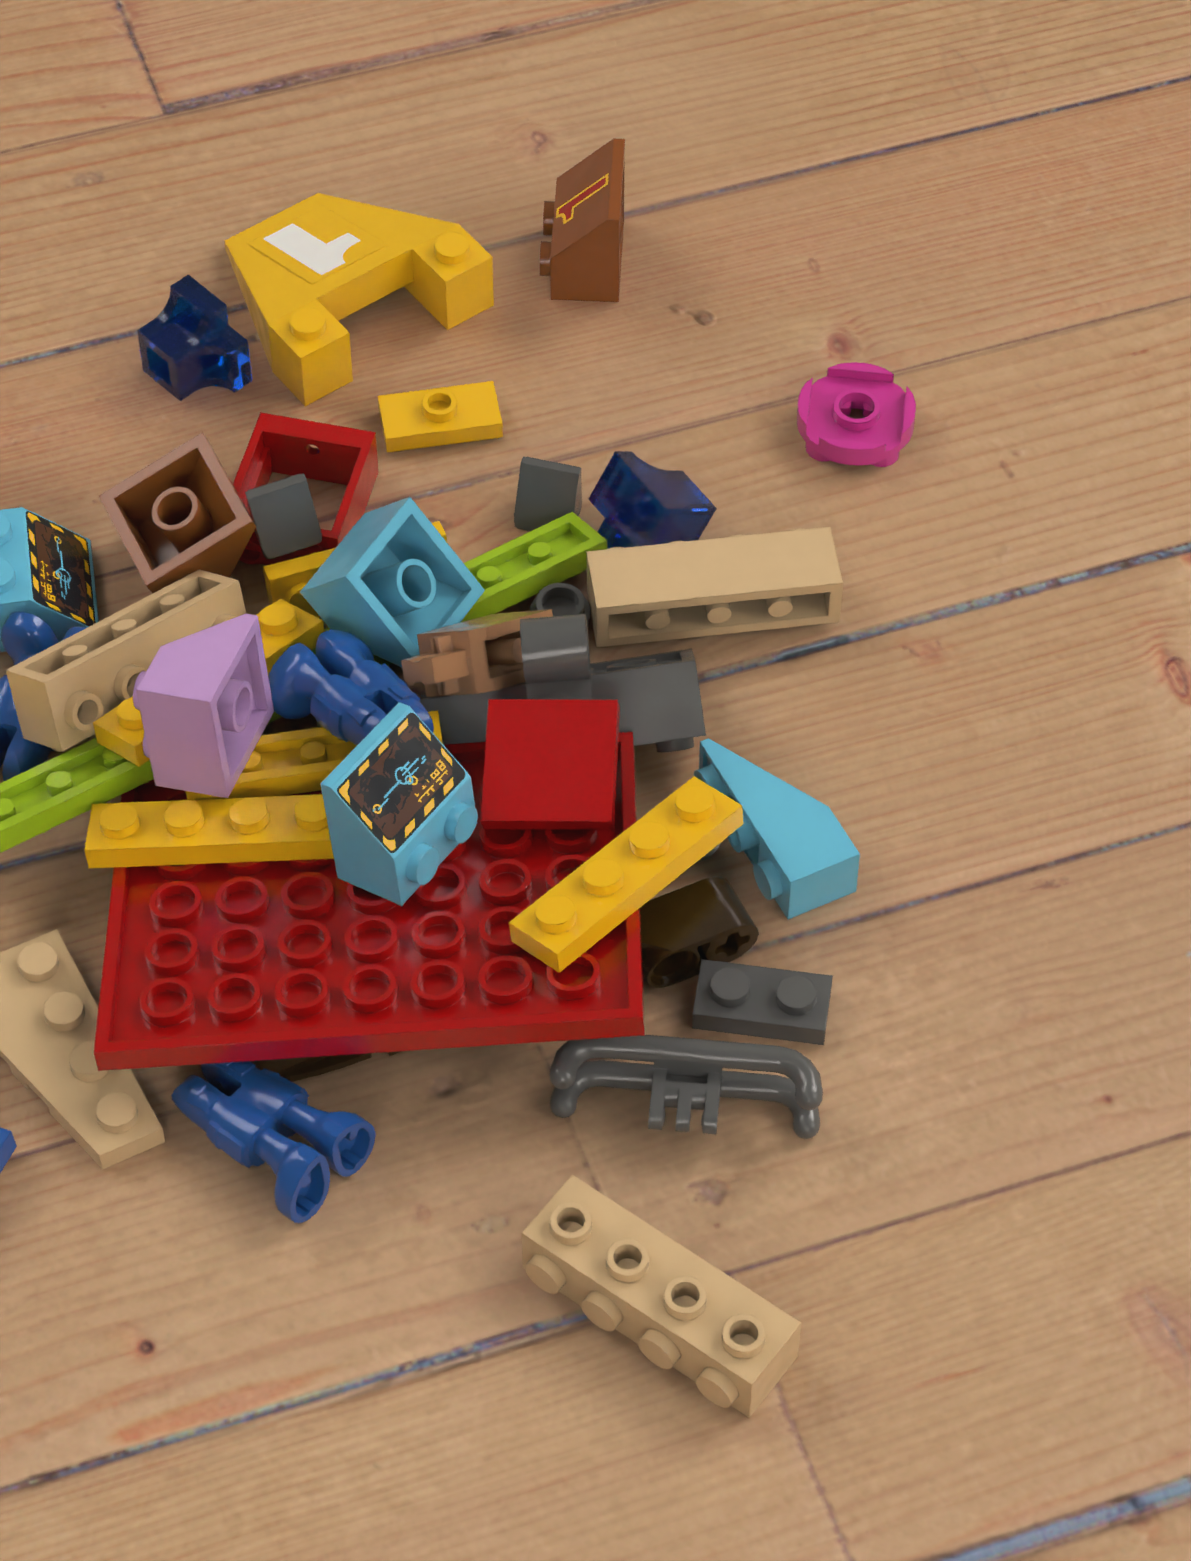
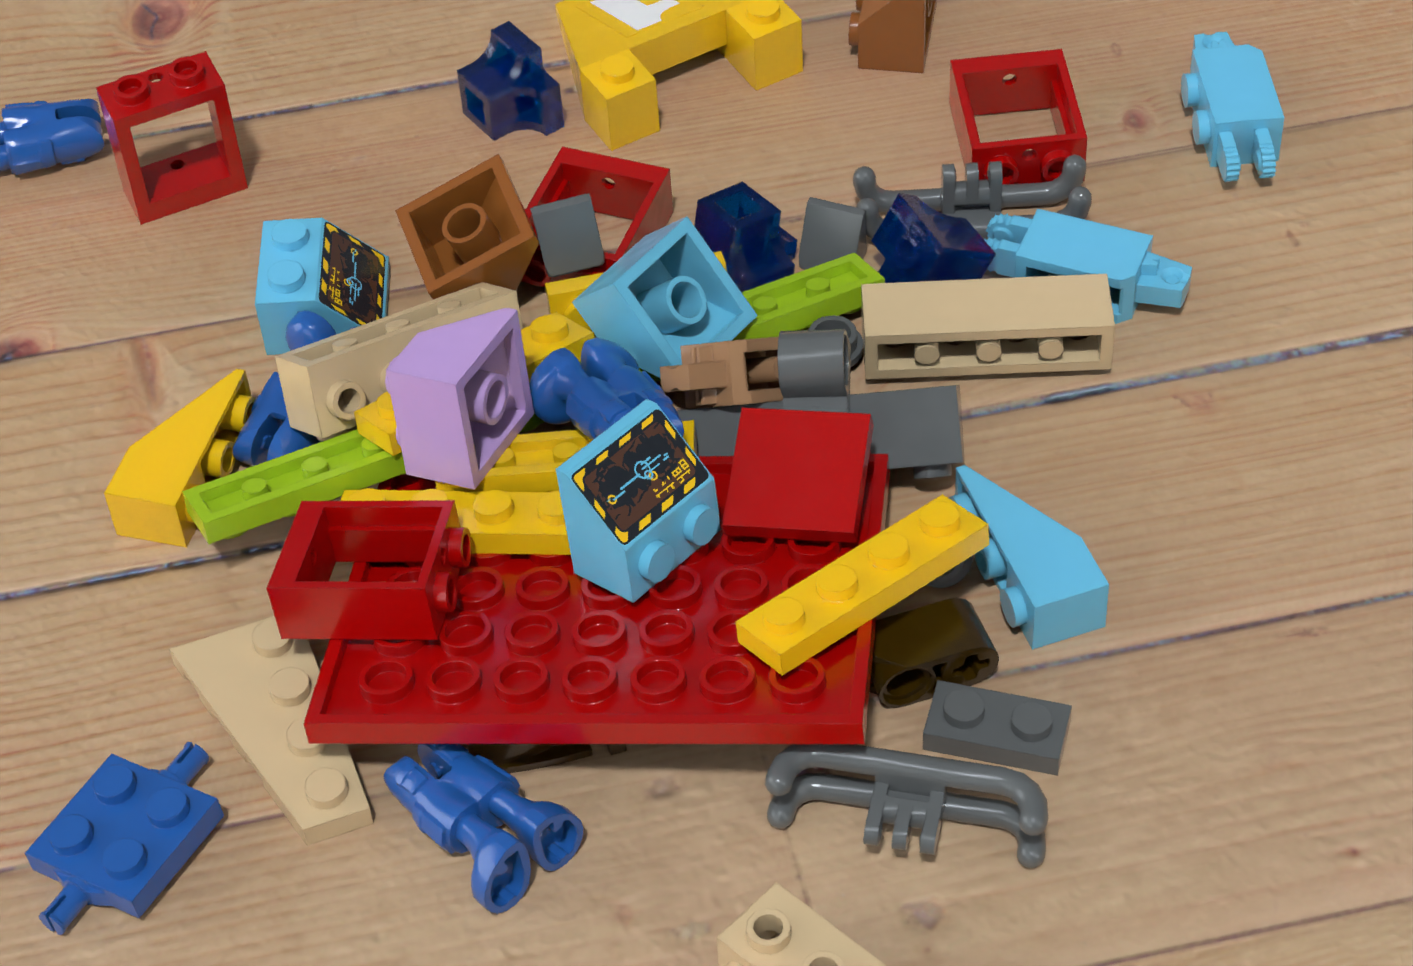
camera: 10 degrees right, 5 degrees down
(135, 850) = (368, 531): none -> red window
(440, 416) = (755, 160): yellow plate -> none
(464, 500) = (747, 234): none -> clear blue brick
(695, 448) = (977, 198): none -> dark grey piece
(739, 311) = (1038, 83): none -> red window
(790, 497) = (1075, 246): none -> medium azure hinge
(851, 441) = (1160, 203): dark pink plate -> none
(938, 328) = (1233, 106): none -> medium azure hinge

